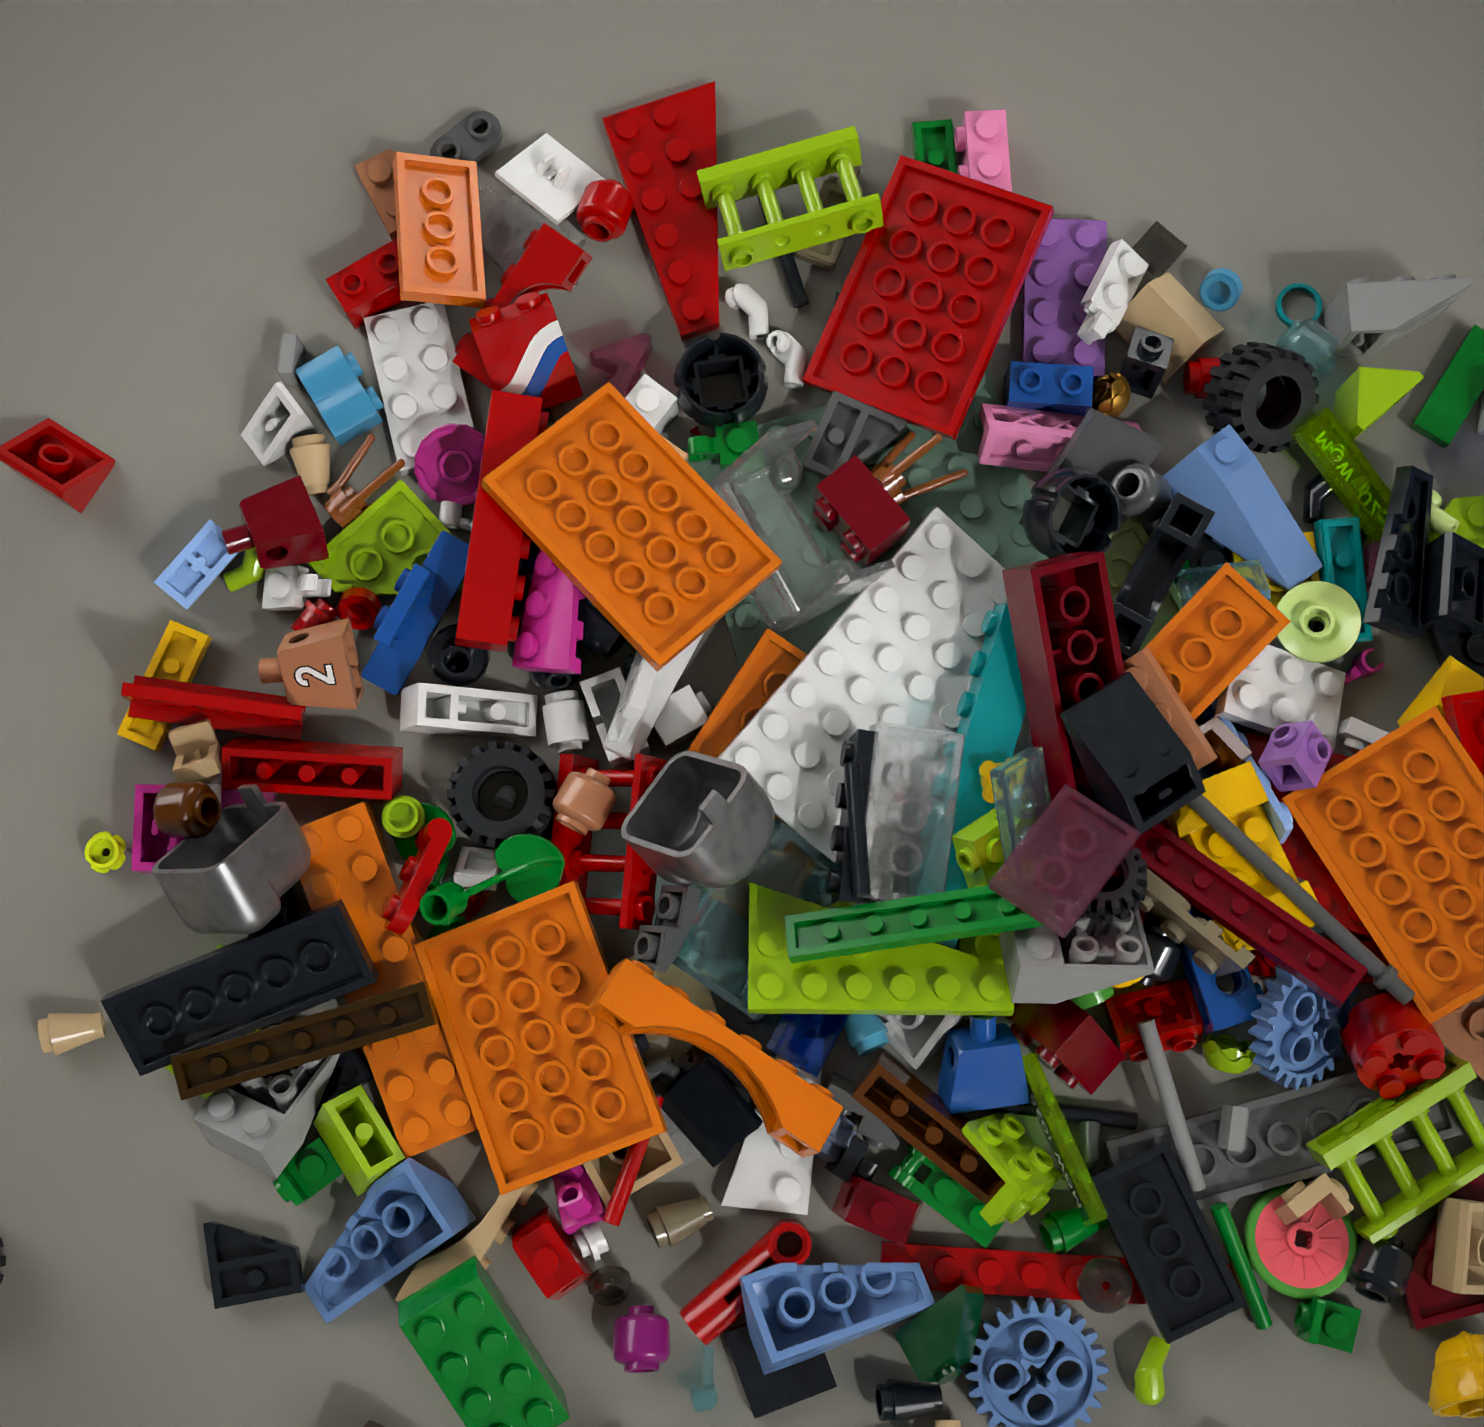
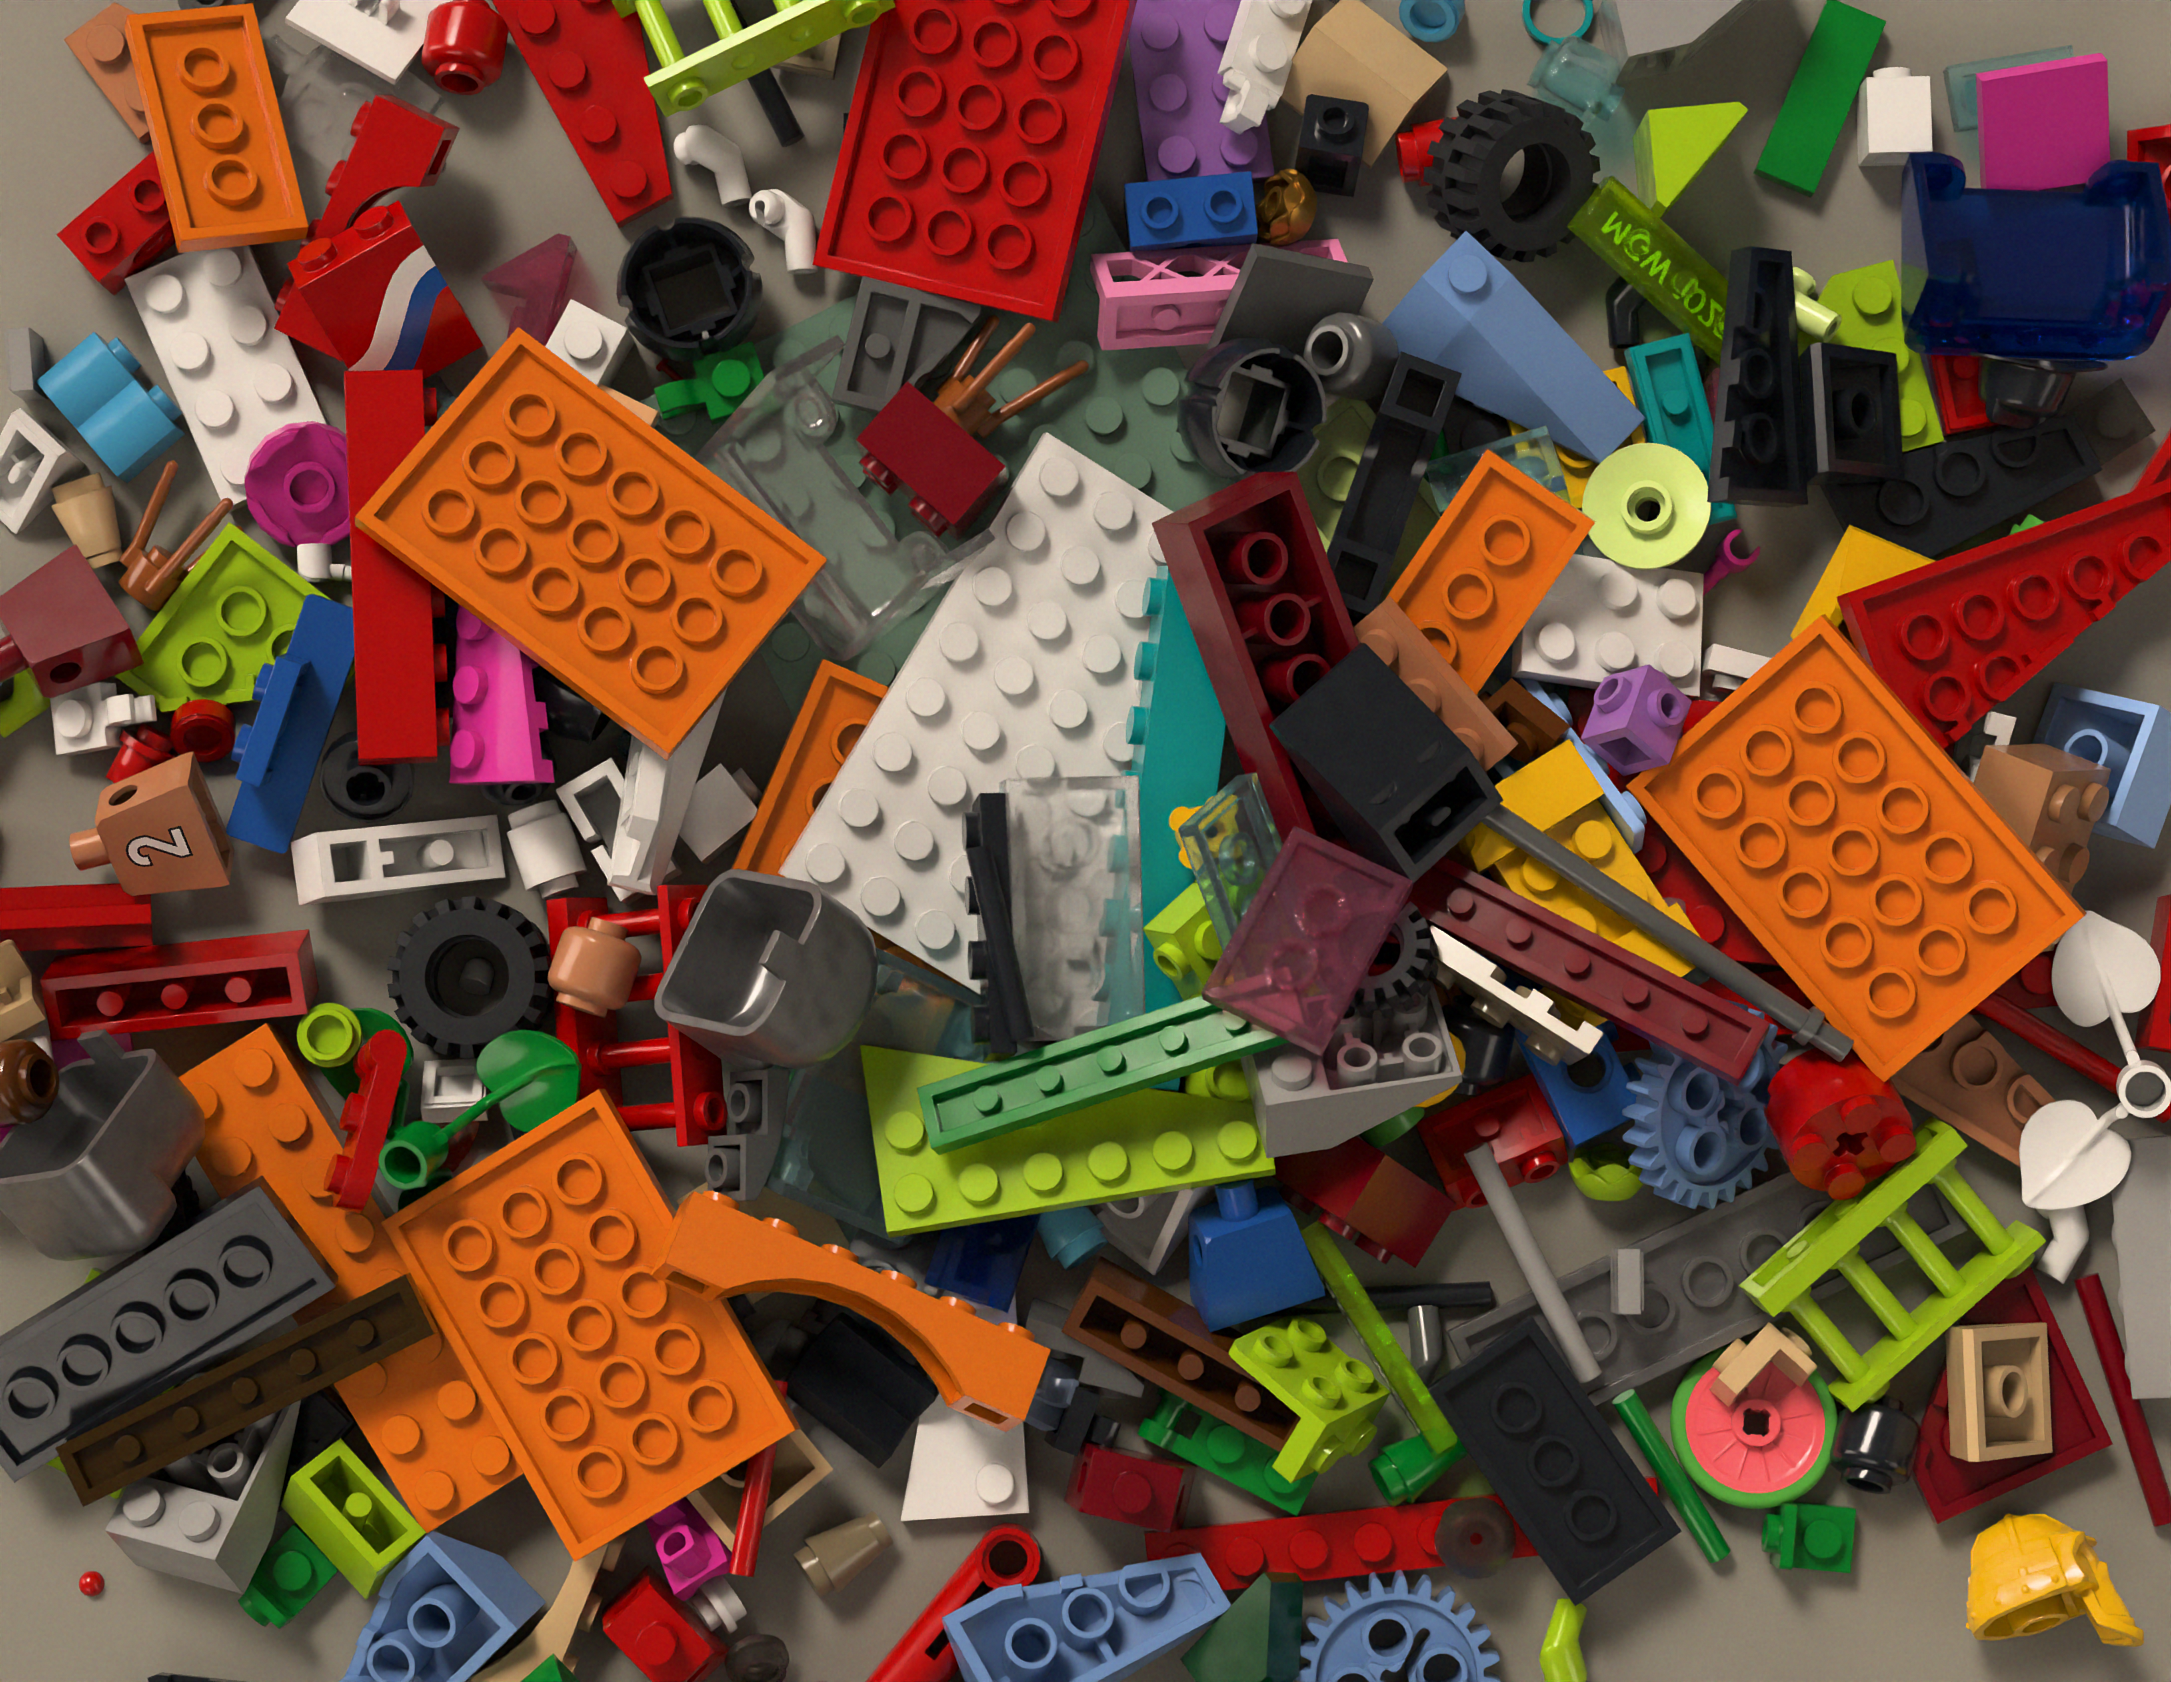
camera: 10 degrees left, 5 degrees up
(179, 1153) = (91, 1583): none -> red piece

